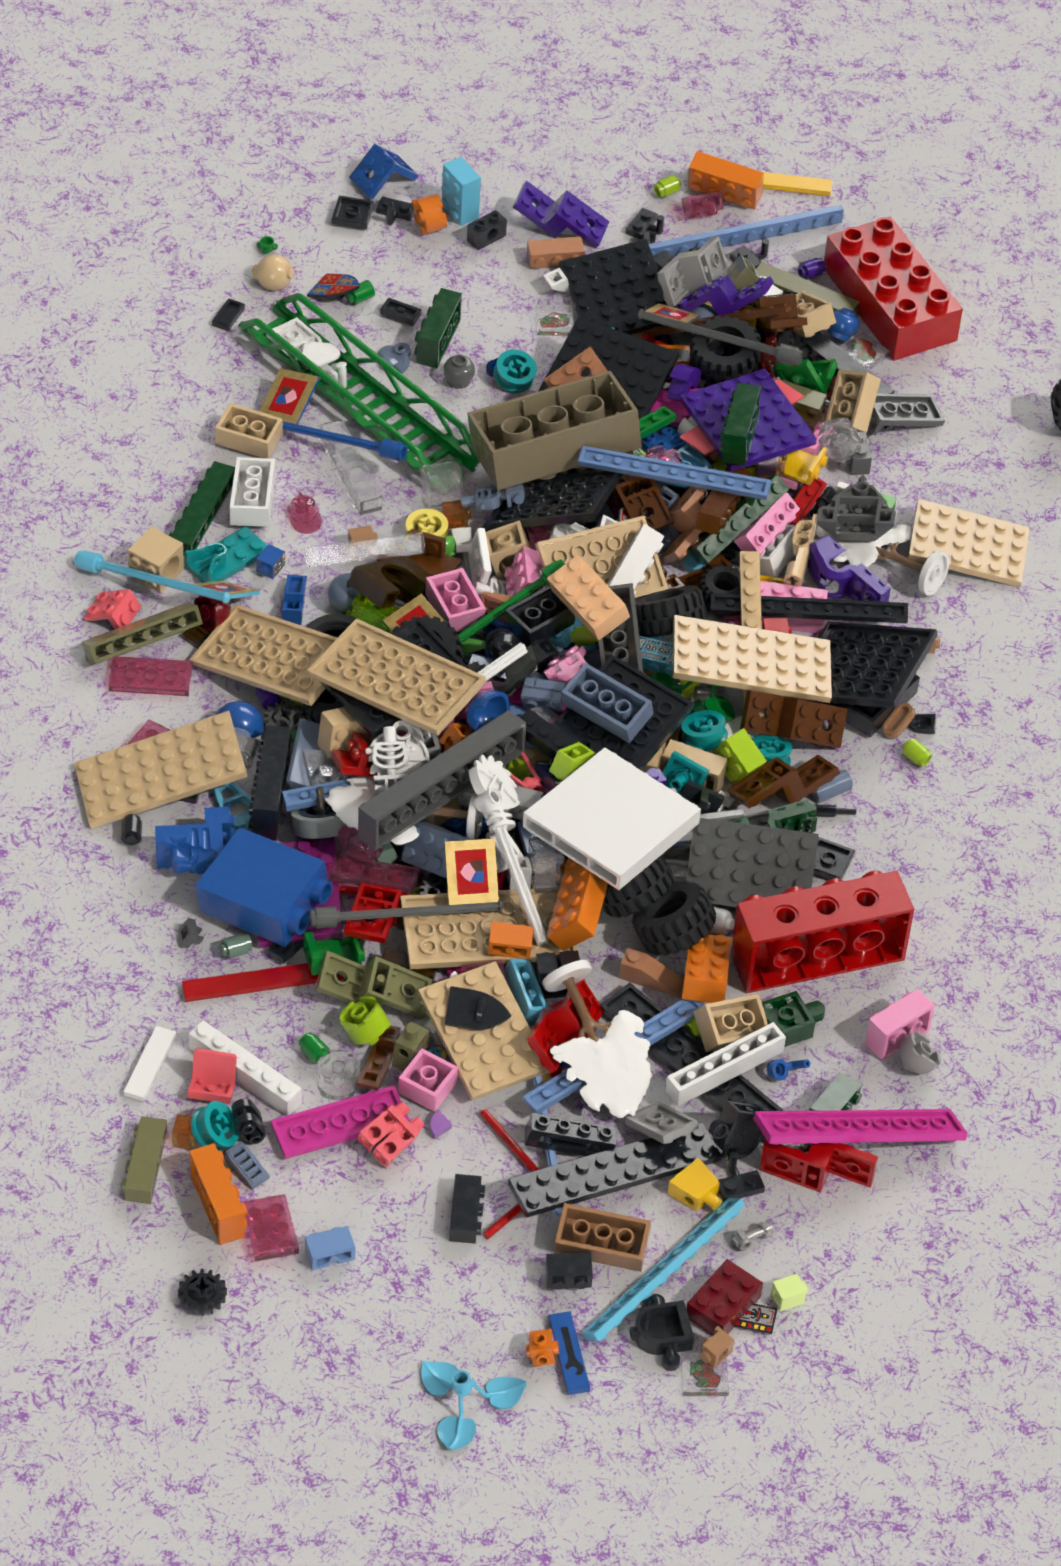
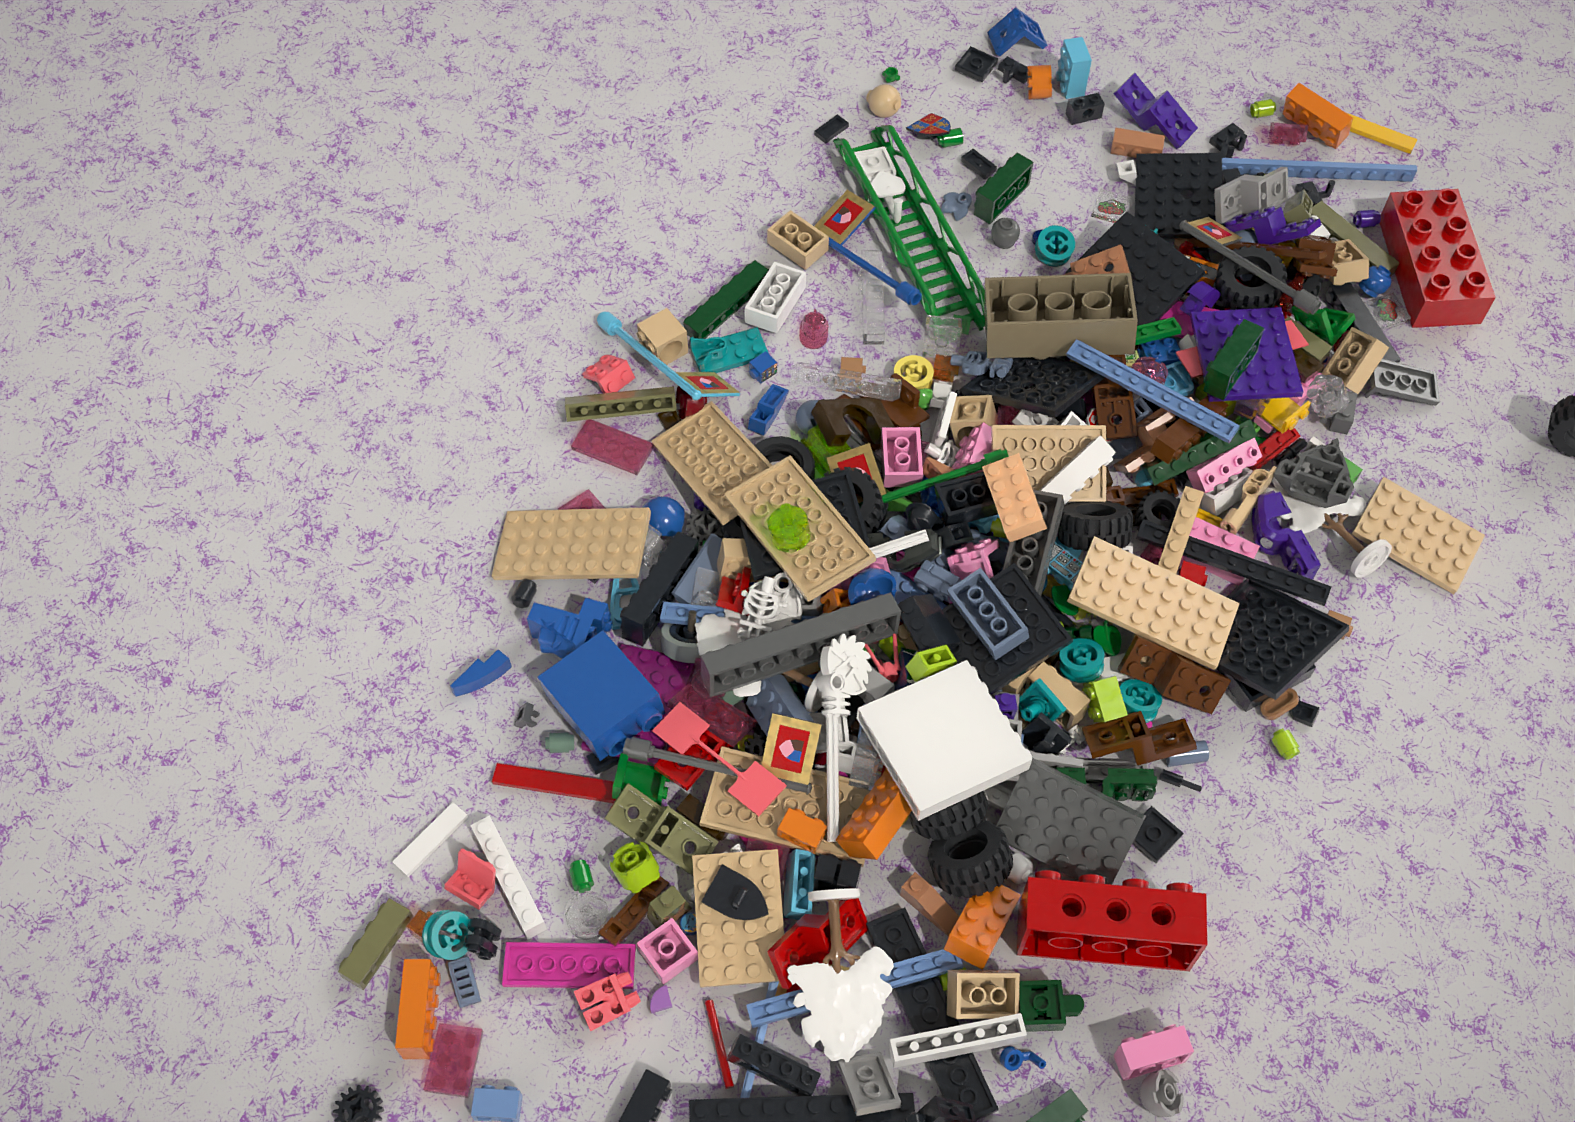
camera: 25 degrees right, 10 degrees up
(126, 910) = (481, 674): none -> blue slope
(391, 675) = (789, 528): none -> clear neon green brick
(448, 915) = (754, 787): none -> coral hinge

